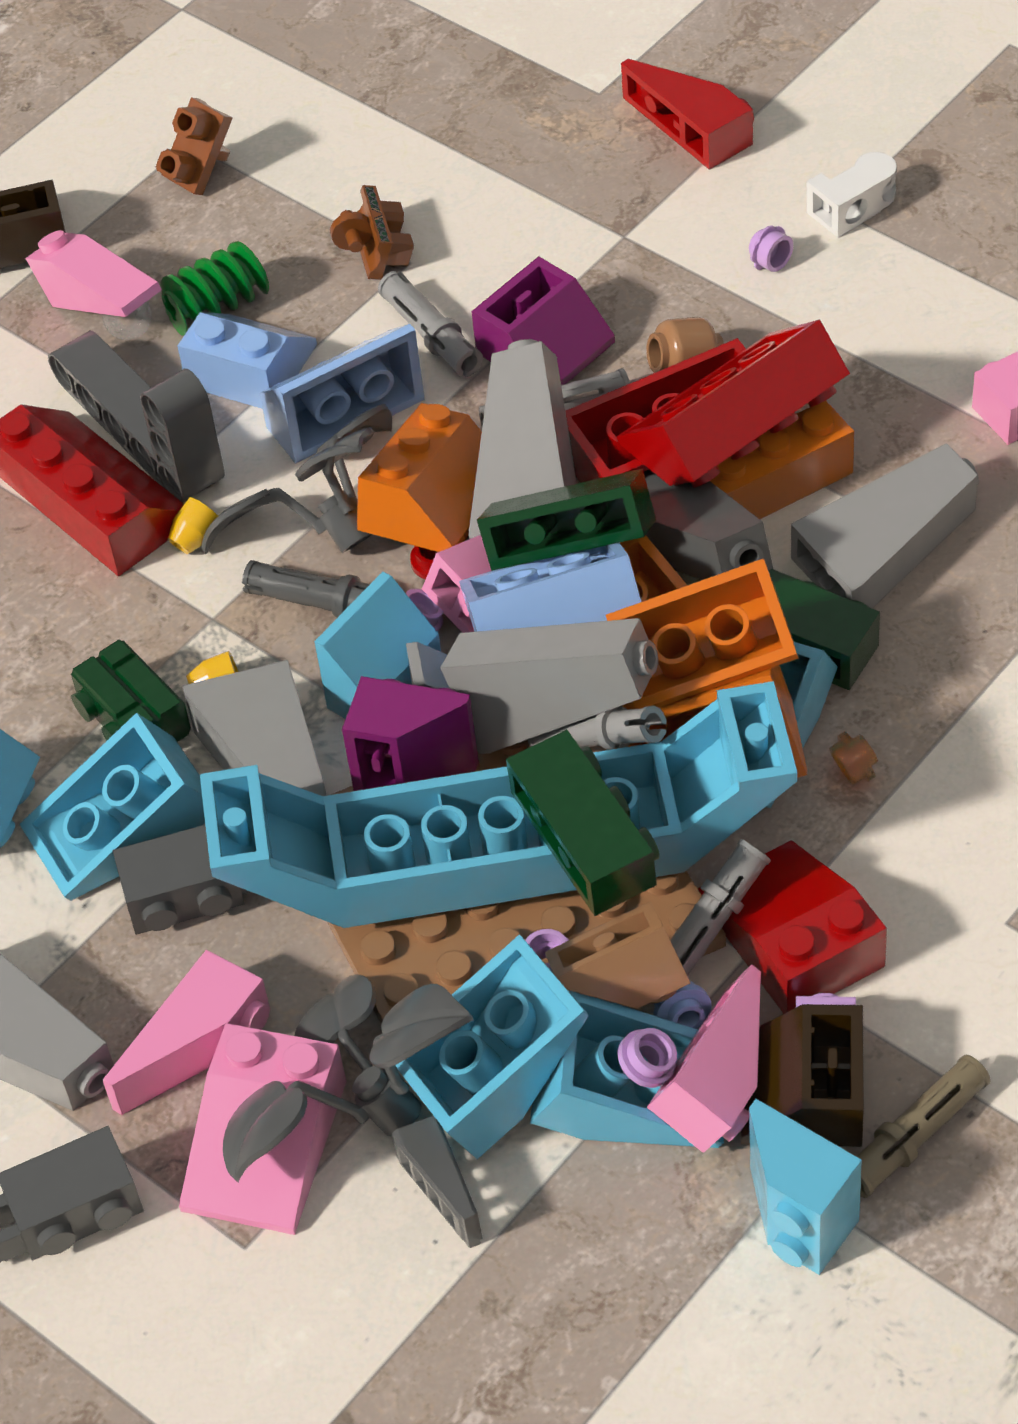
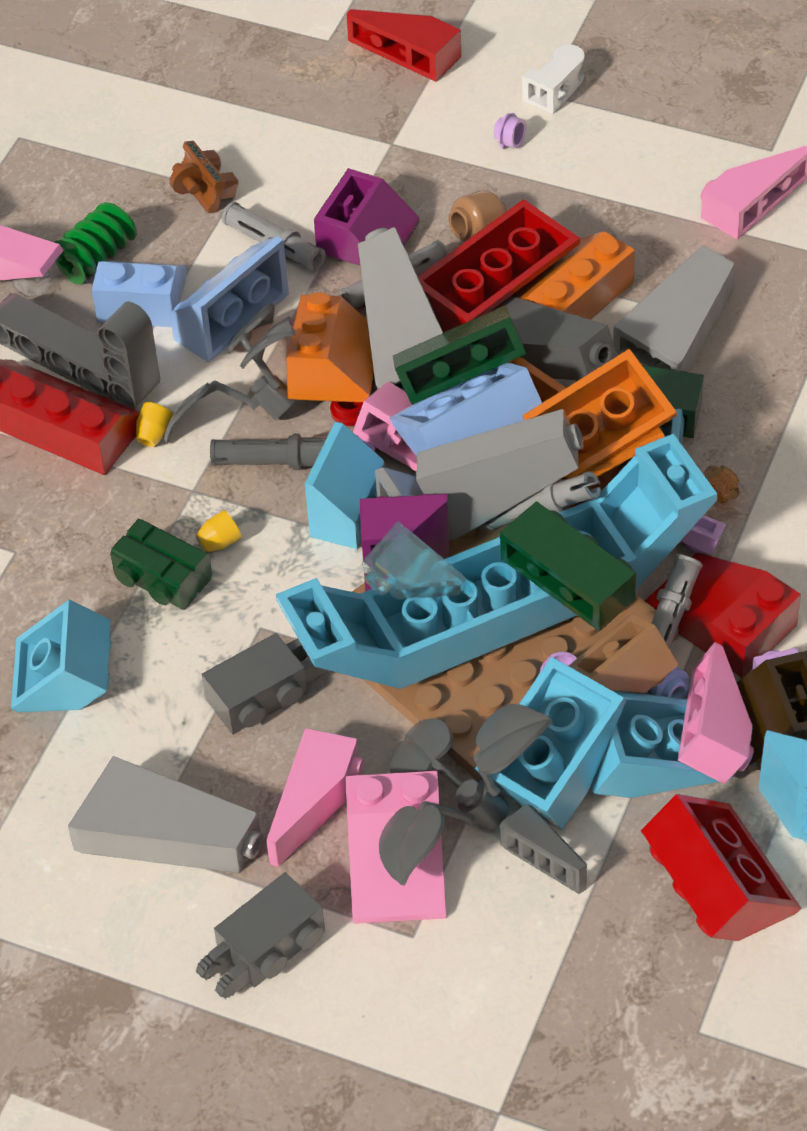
camera: 20 degrees left, 0 degrees up
(120, 796) = (182, 639): medium azure slope -> none
(196, 146) = (35, 137): dark orange hips -> none
(256, 721) = (269, 557): light grey slope -> none
(380, 778) = (410, 568): none -> clear light blue slope
(650, 1262) = (718, 868): none -> red slope
(656, 1048) = (668, 723): lavender plate -> none
(737, 405) = (548, 246): red slope -> none
(801, 814) = (704, 535): none -> lavender plate

